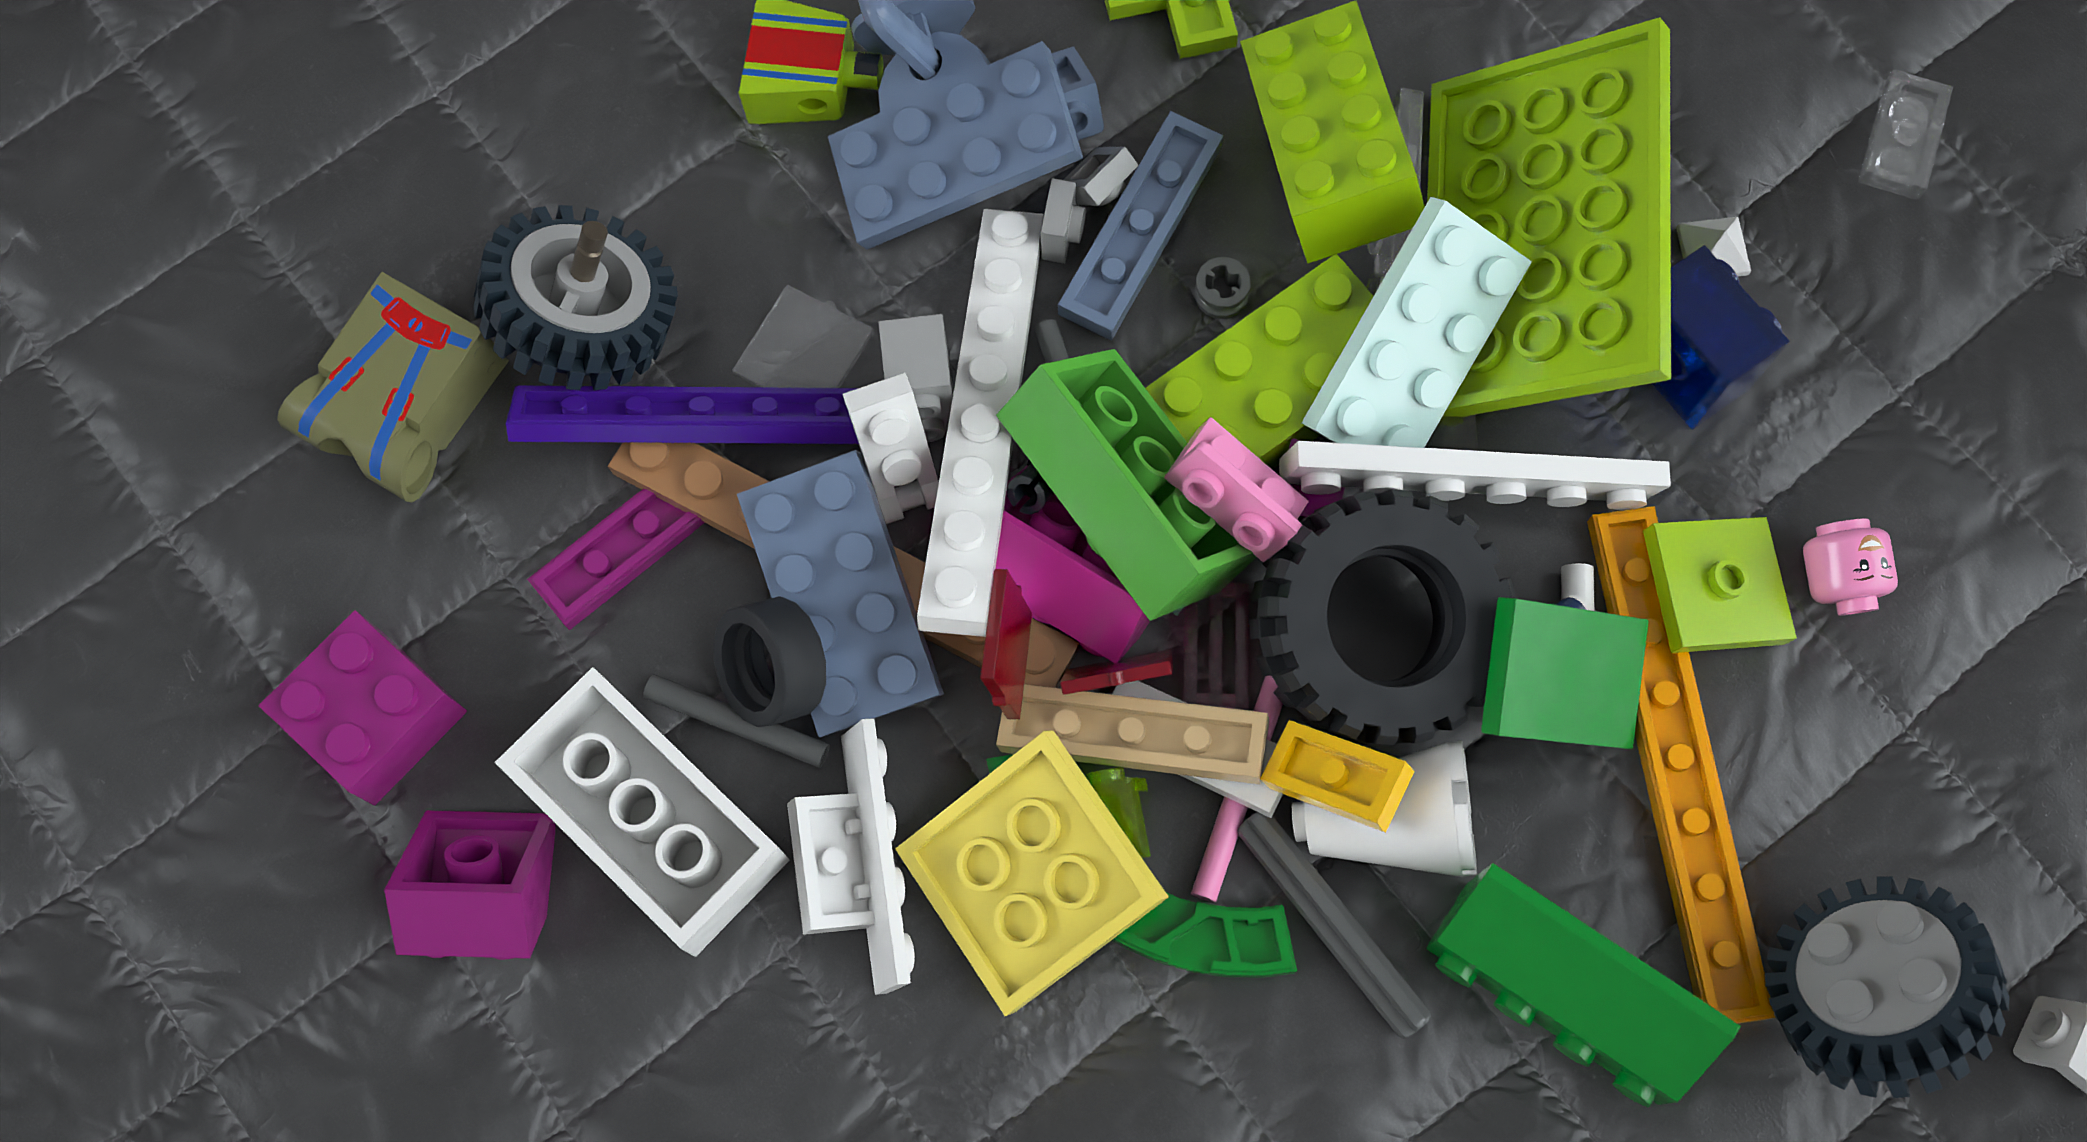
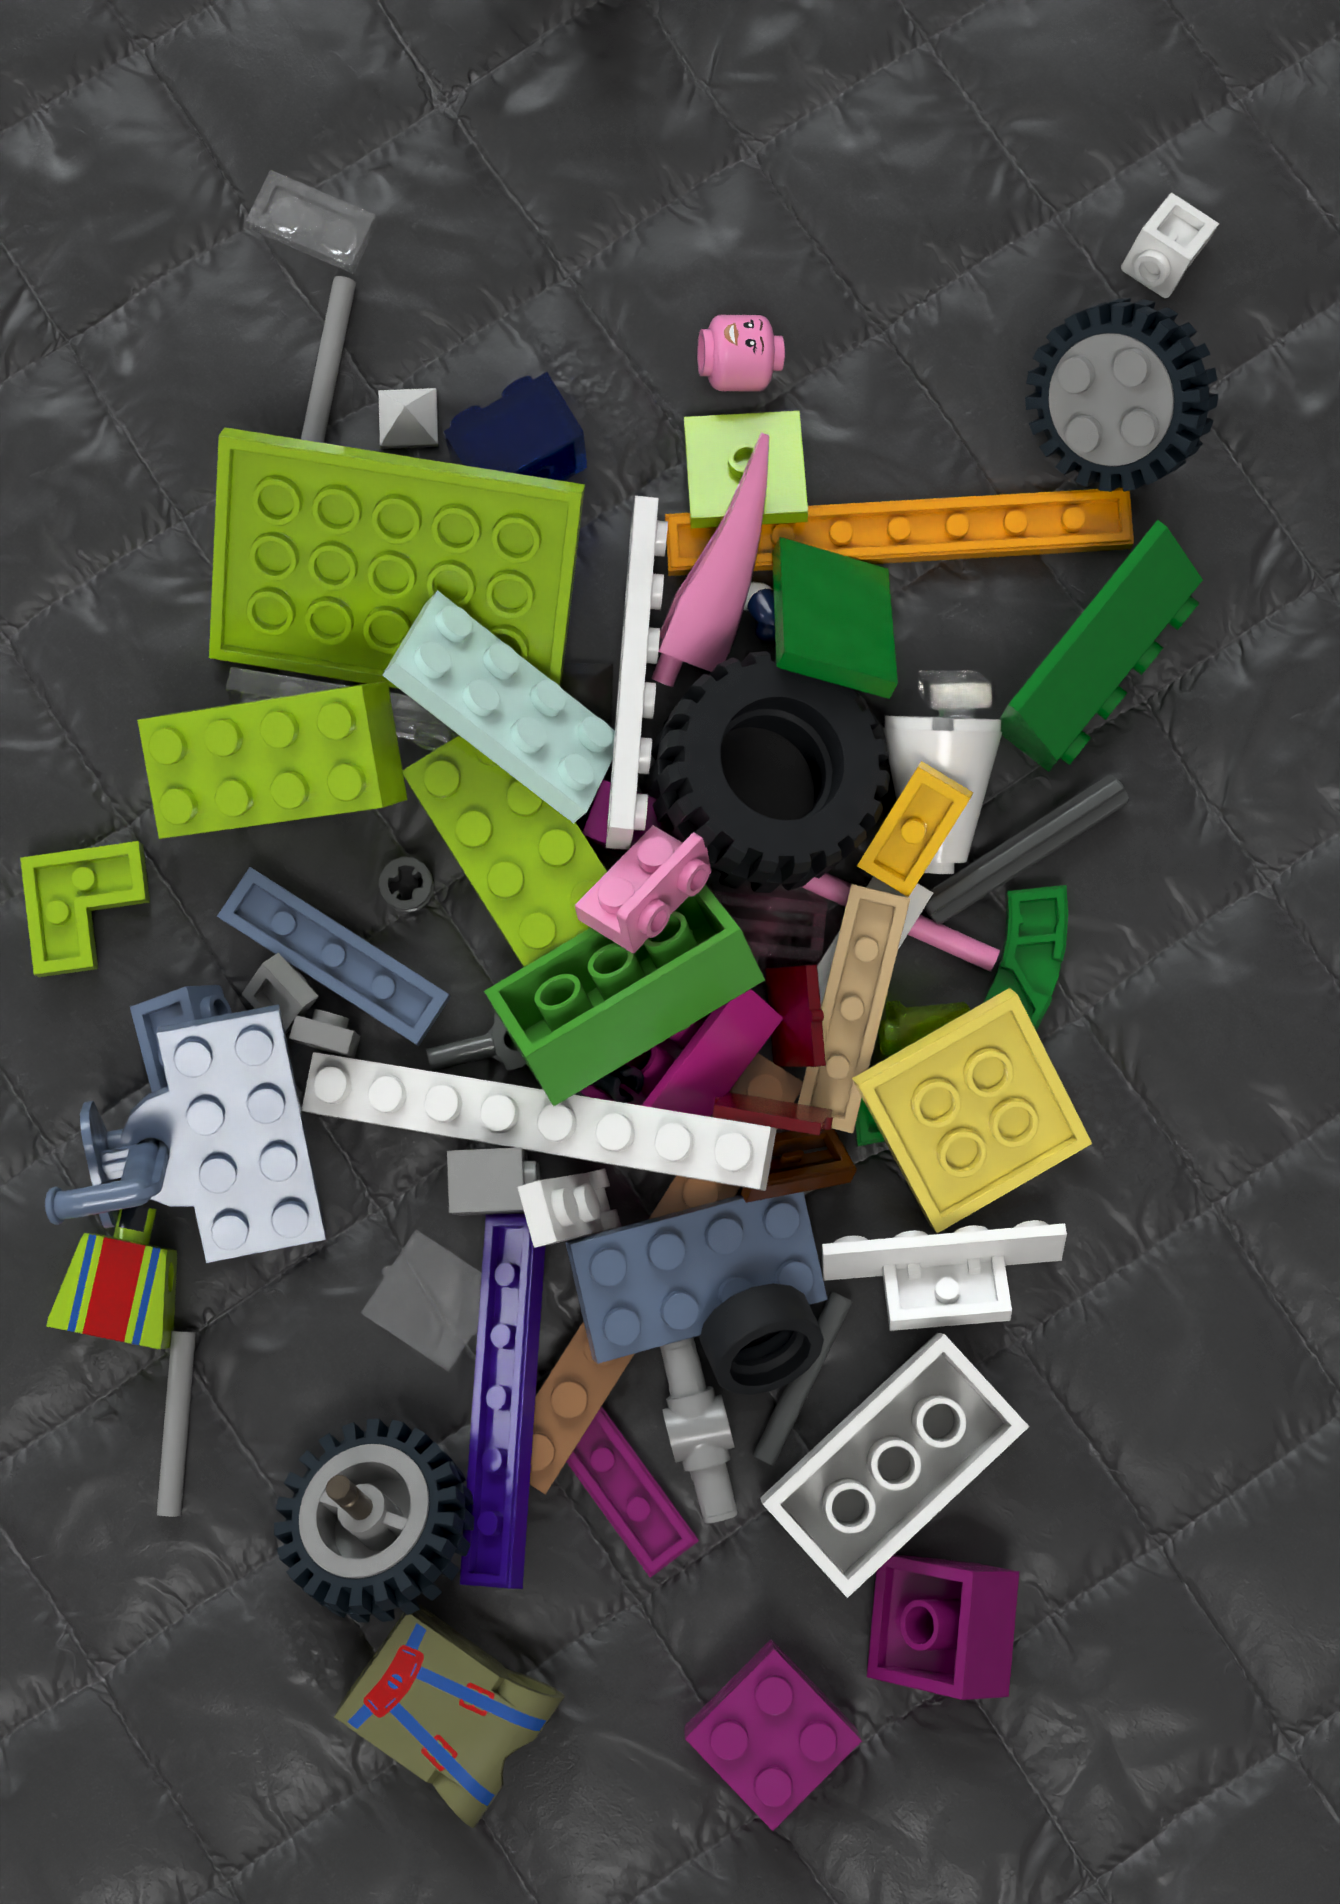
camera: 90 degrees left, 10 degrees up
(674, 130) = (176, 1423): none -> light grey bar
(674, 615) = (698, 1430): none -> light grey pin
(951, 685) = (804, 1172): none -> reddish brown tile
(1500, 817) = (955, 692): none -> clear plate
(1566, 554) = (714, 594): none -> bright pink piece
(1761, 167) = (328, 359): none -> light grey bar

